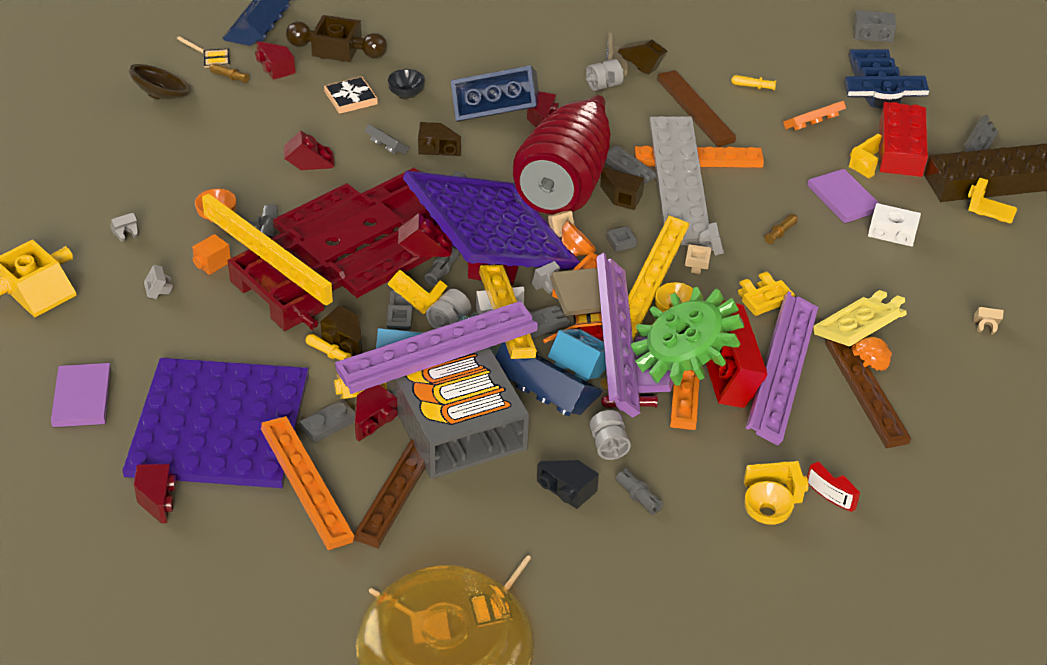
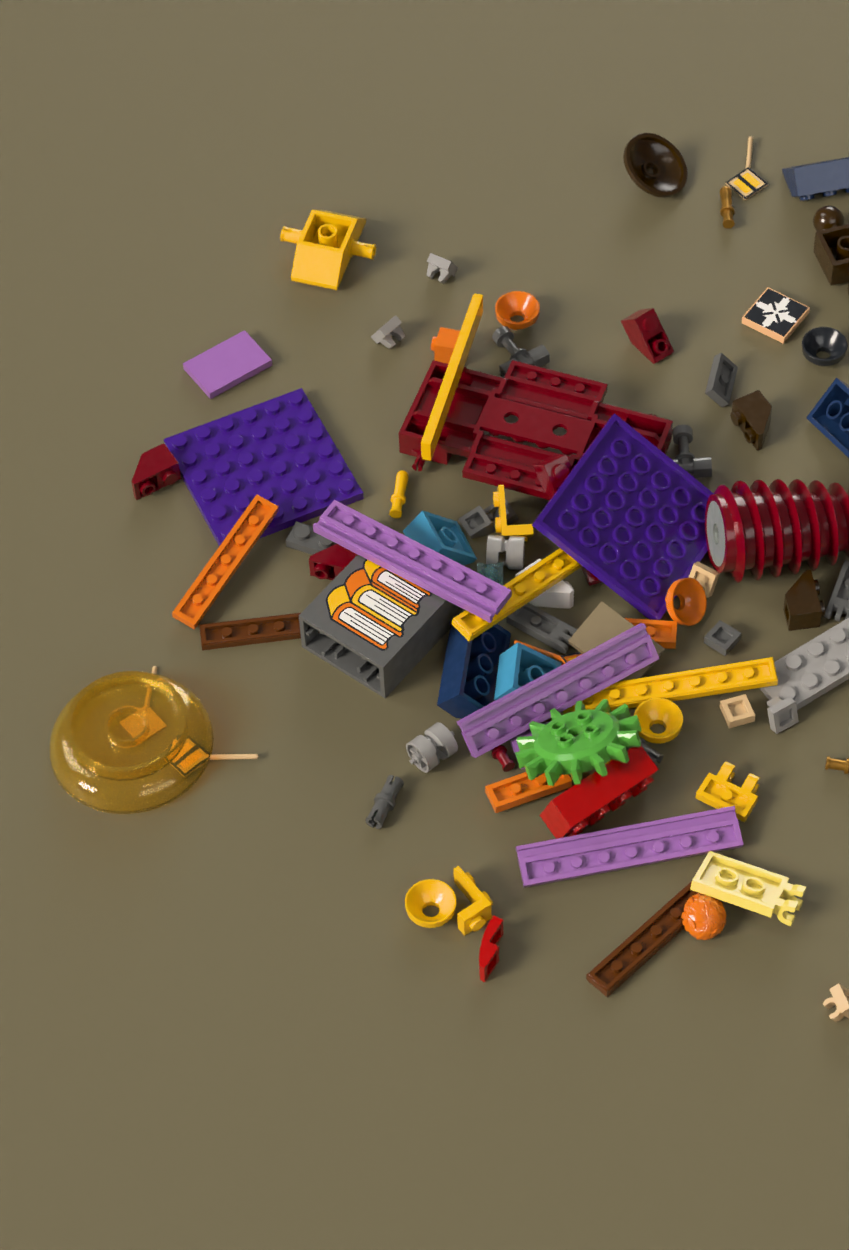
camera: 65 degrees right, 10 degrees up
(275, 59) = (773, 228): dark red slope -> none
(342, 329) = (425, 491): dark brown slope -> none
(542, 277) = (615, 601): light grey tile -> none
(568, 480) = (357, 745): black slope -> none

